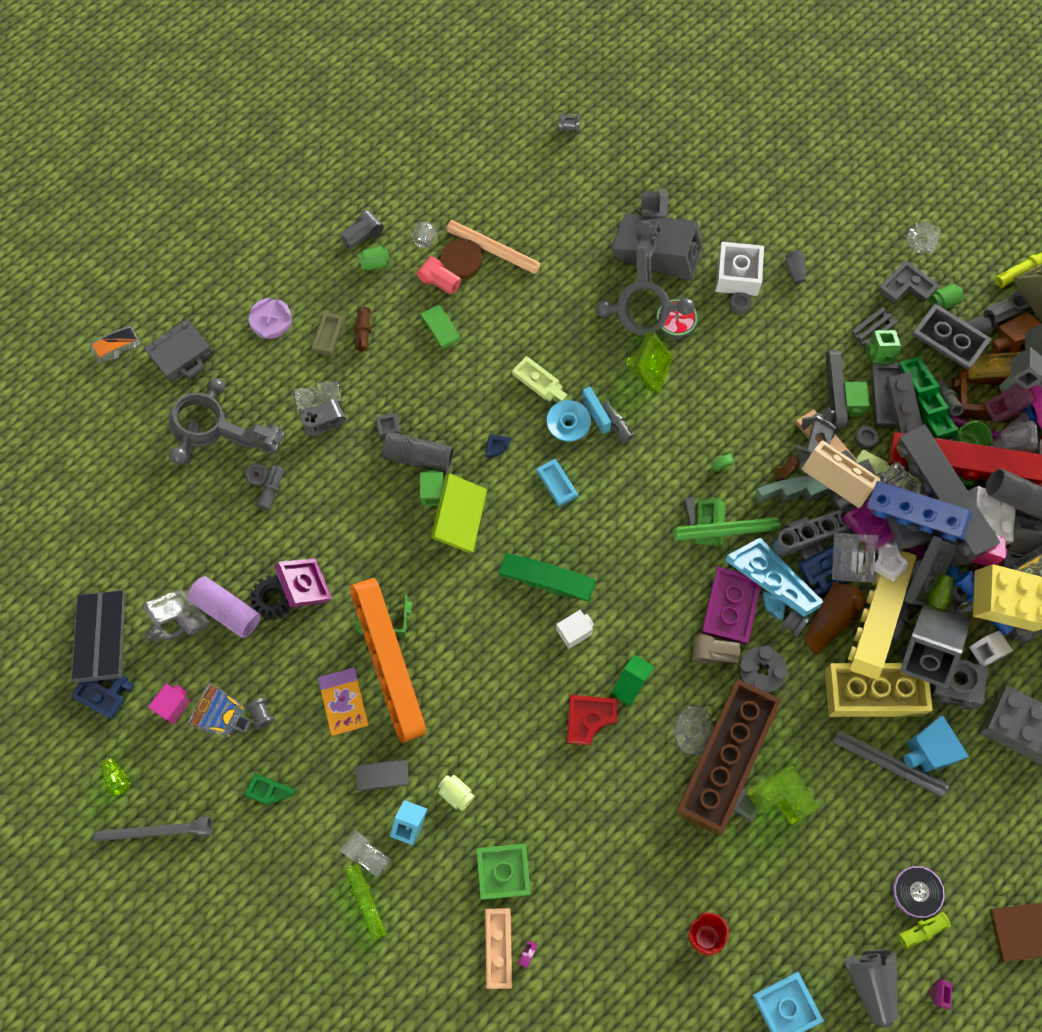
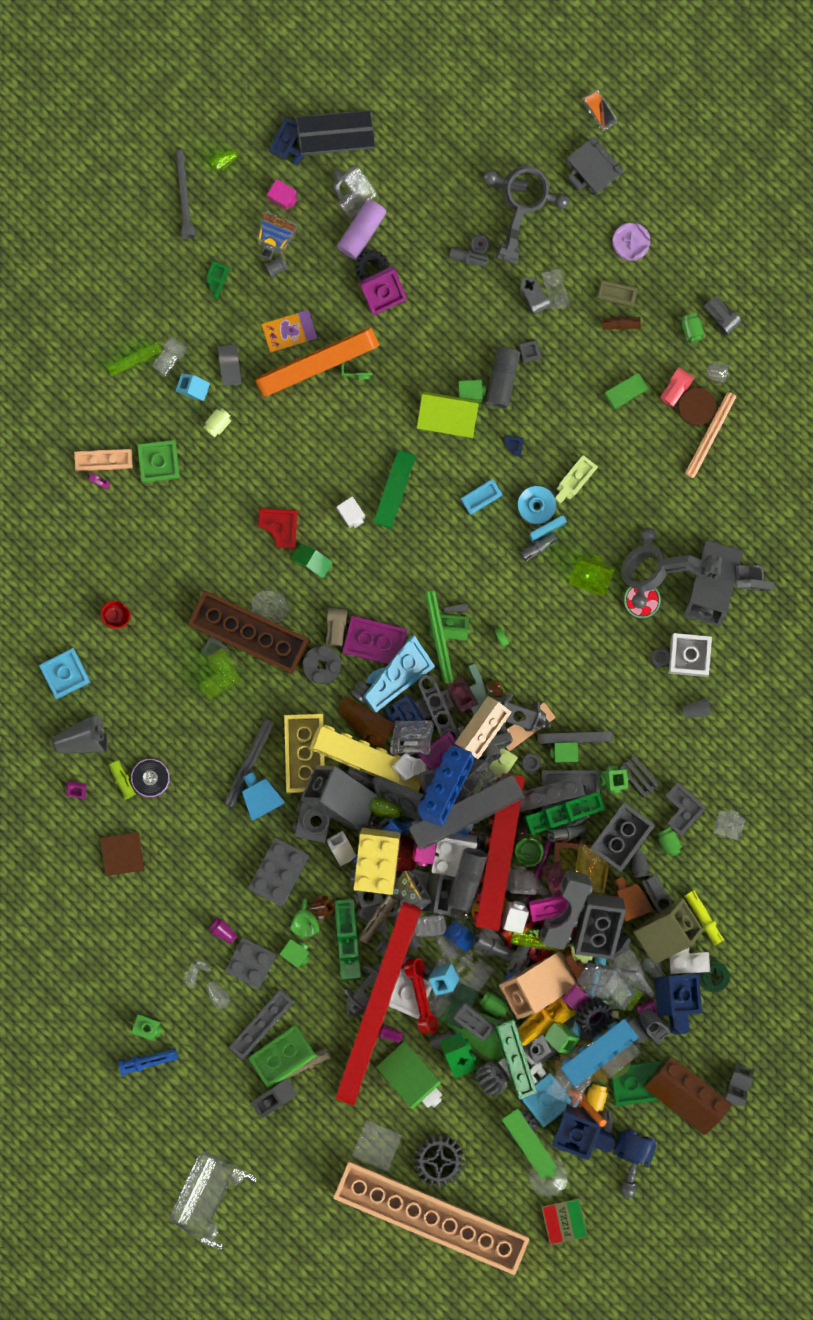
camera: 85 degrees right, 15 degrees up
(796, 505) = (461, 695): none -> clear pink slope

